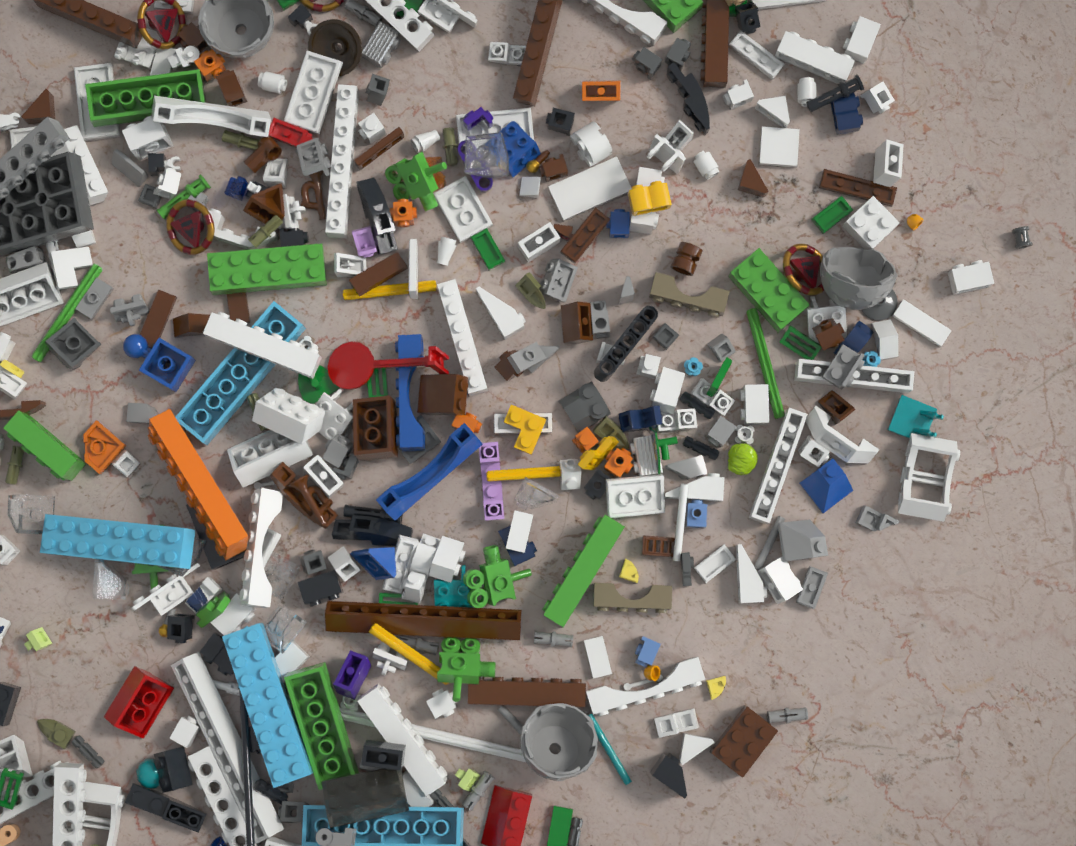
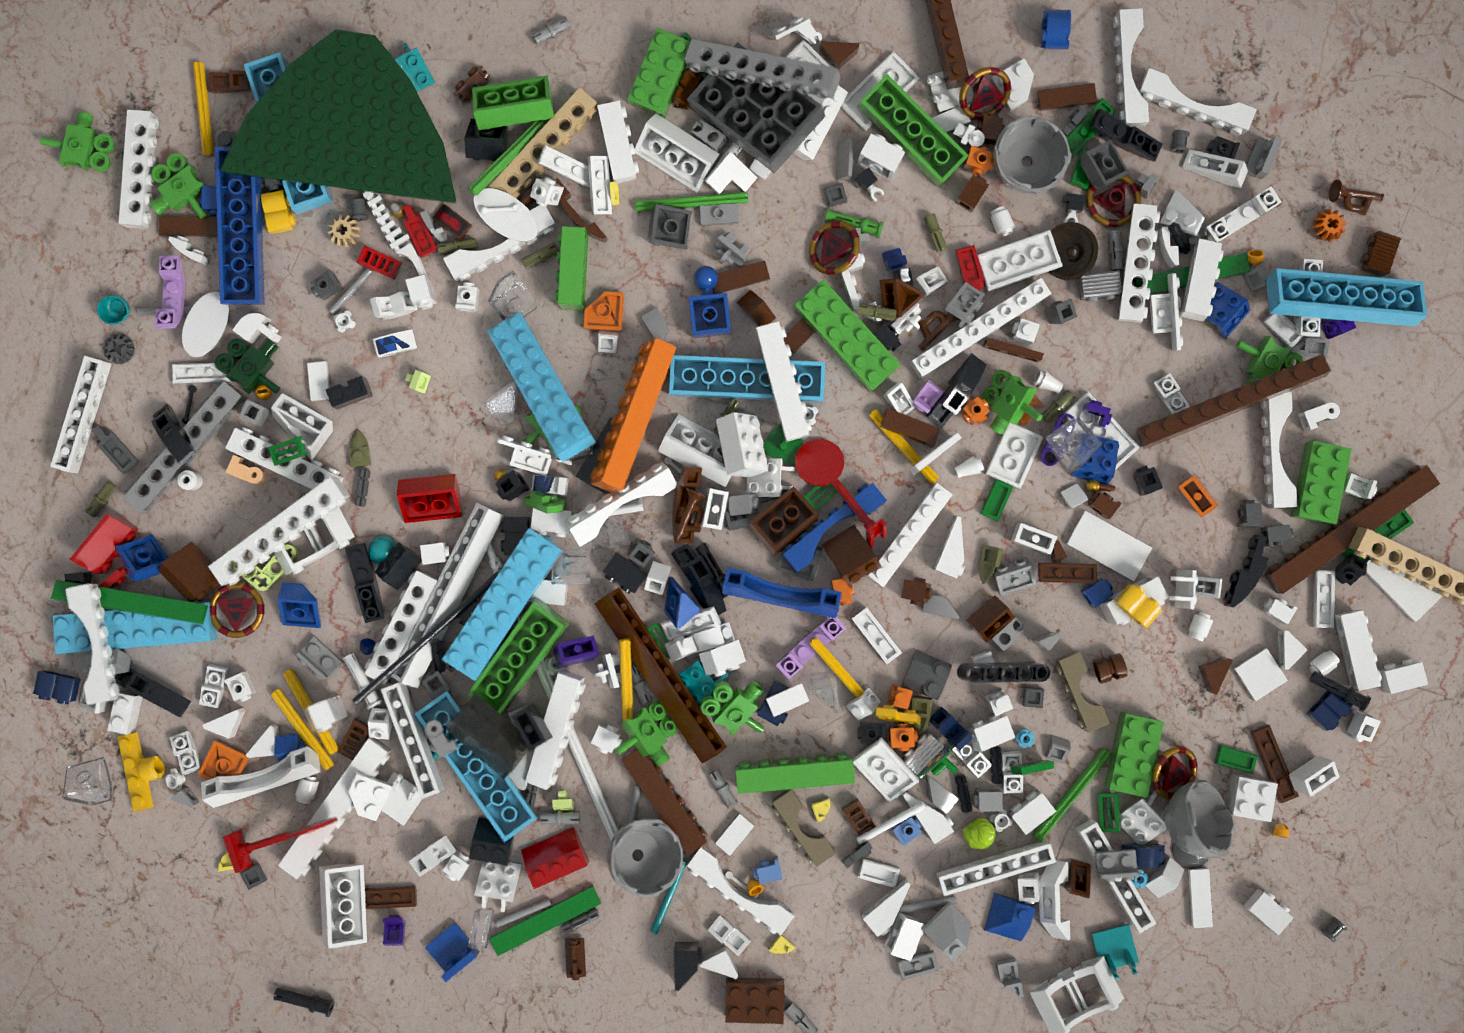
camera: 50 degrees right, 5 degrees up
(167, 183) = (856, 202): white brick -> none
(185, 111) = (923, 169): white arch -> none
(266, 151) = (942, 260): reddish brown piece -> none
(526, 357) = (931, 601): light grey plate -> none
(530, 426) = (879, 641): yellow plate -> none
(591, 144) = (1147, 521): white brick -> none
(828, 333) = (1135, 831): reddish brown brick -> none

